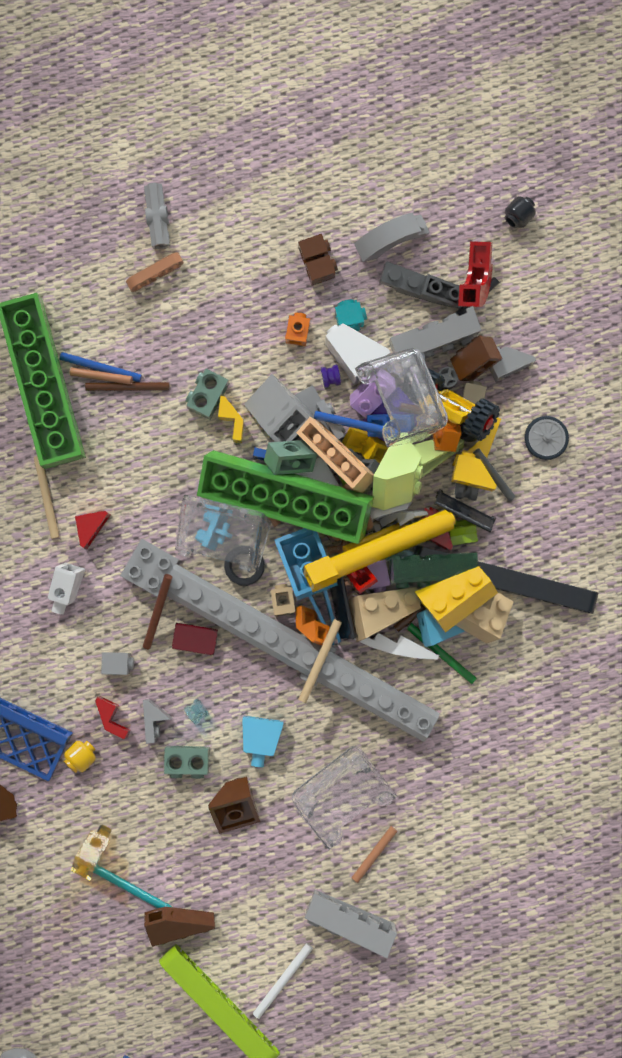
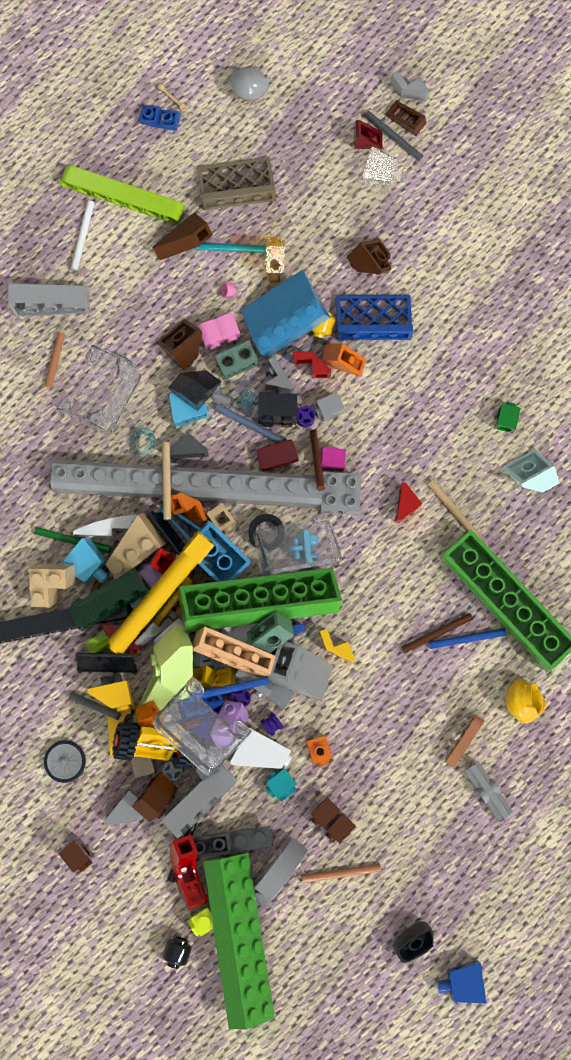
camera: 150 degrees right, 5 degrees down
(69, 579) = (401, 446): white torso -> none
(76, 707) = (343, 358): none -> orange slope
(77, 280) = (524, 701): none -> yellow helmet
(91, 942) = (238, 195): none -> dark tan fence
(101, 376) = (463, 630): nougat bar -> none
(112, 785) = (284, 314): none -> dark azure slope
(140, 607) = (333, 459): none -> dark pink brick
(143, 667) = (305, 413): none -> dark purple wheel
(158, 843) = (228, 289): none -> bright pink hinge
(170, 685) = (277, 409): none -> black brick
(189, 800) = (219, 331): none -> bright pink brick
(207, 687) = (248, 423): none -> sand blue bar
(211, 395) = (362, 657): sand green brick -> none
(224, 734) = (218, 396): none -> light grey arm
(244, 749) = (195, 387): none -> black slope
(268, 59) = (464, 983): none -> blue torso
(280, 690) = (188, 448): none -> dark grey slope
(296, 116) = (414, 942): none -> black piece
(312, 720) = (136, 434): none -> clear light blue piece
(333, 210) = (341, 873): none -> nougat bar
(347, 411) = (238, 696): none -> dark purple wheel
(457, 597) = (78, 582): yellow wedge -> none
(458, 192) = (238, 941): none -> bright green brick
(482, 227) = (201, 921): none -> neon yellow brick
(575, 341) = (77, 855): none -> reddish brown brick

